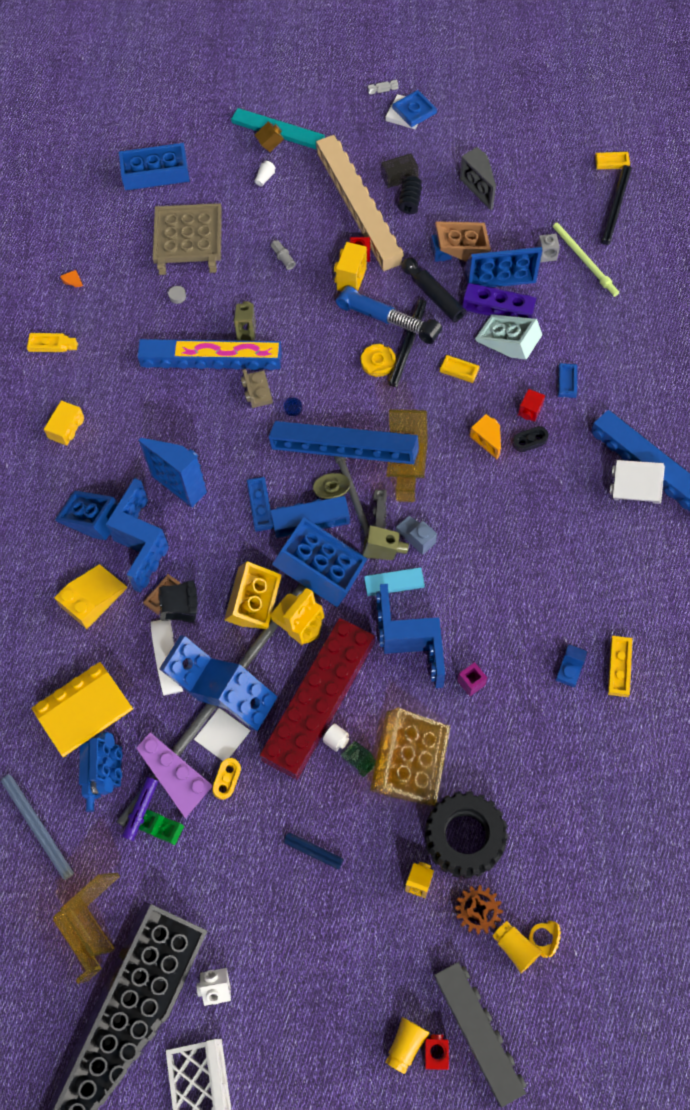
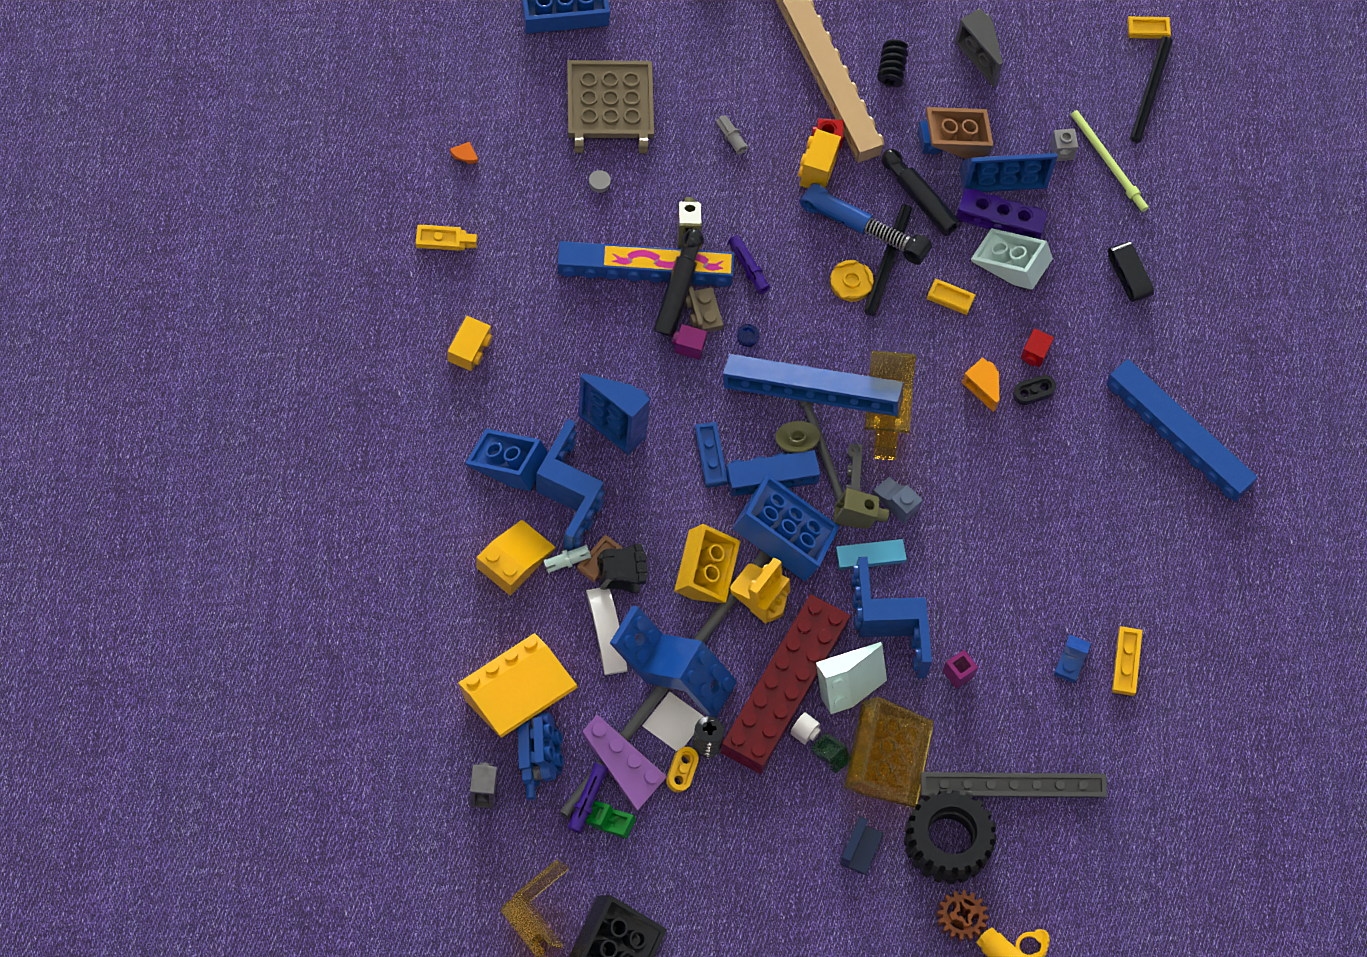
camera: 10 degrees left, 0 degrees up
(37, 827) = (469, 814): sand blue axle -> none
(46, 801) = (483, 785): none -> flat silver brick
(134, 595) = (567, 558): none -> light aqua pin
(234, 368) = (679, 284): none -> black piece
(244, 413) = (689, 341): none -> magenta brick
(247, 748) = (708, 736): none -> black piece
(265, 171) = (707, 19): white cone -> none
(297, 356) = (753, 271): none -> dark purple pin
(313, 850) = (780, 849): dark blue axle -> none
(375, 690) = (851, 677): none -> light aqua slope
(386, 845) = (861, 847): none -> dark blue panel
(397, 169) = (879, 27): clear smoke brick -> none
(419, 879) = (898, 883): yellow slope -> none
(524, 782) = (1016, 784): none -> dark grey plate
(567, 380) = (1081, 318): blue tile -> none
(607, 341) = (1130, 271): none -> black beam
(638, 481) = (1158, 448): white panel -> none

